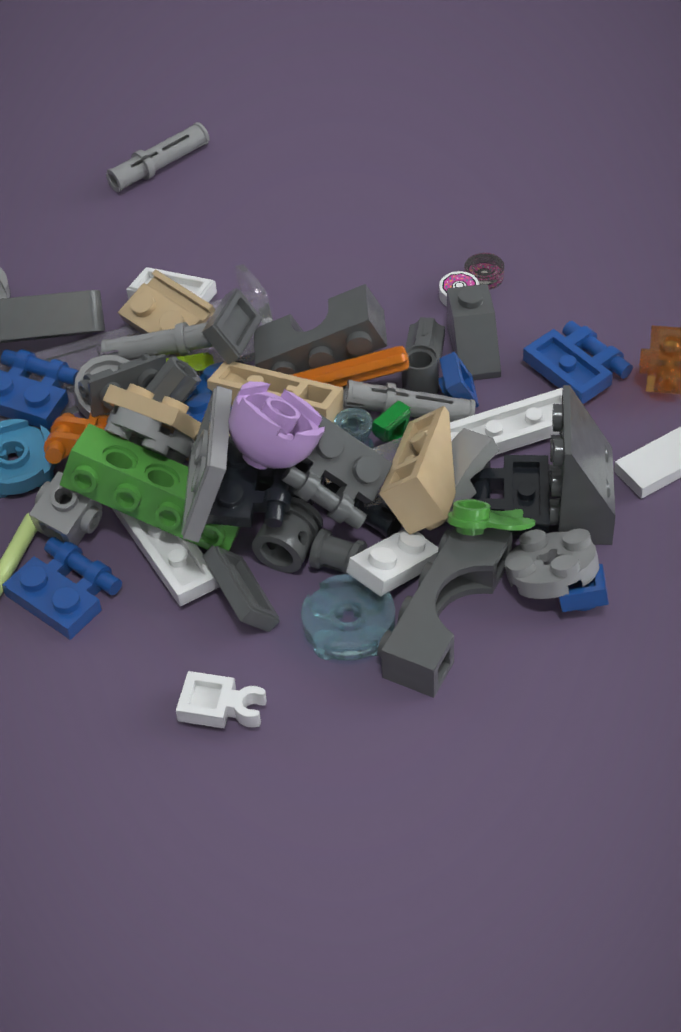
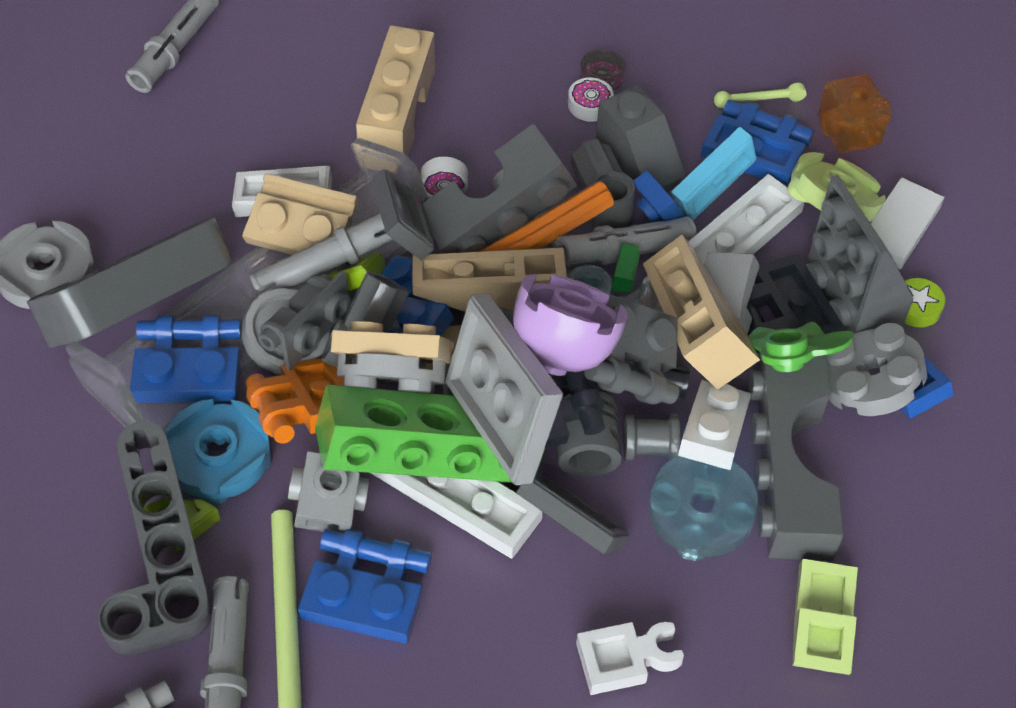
camera: 30 degrees left, 5 degrees up
(302, 311) = (441, 172): none -> white tile
(314, 224) = (398, 82): none -> tan arch
(395, 733) = (825, 617): none -> yellowish green slope
(513, 372) = (715, 174): none -> medium azure tile
(622, 420) = (812, 177): none -> yellowish green plate
(635, 527) = (927, 302): none -> lime tile
(639, 332) = (795, 92): none -> yellowish green hinge

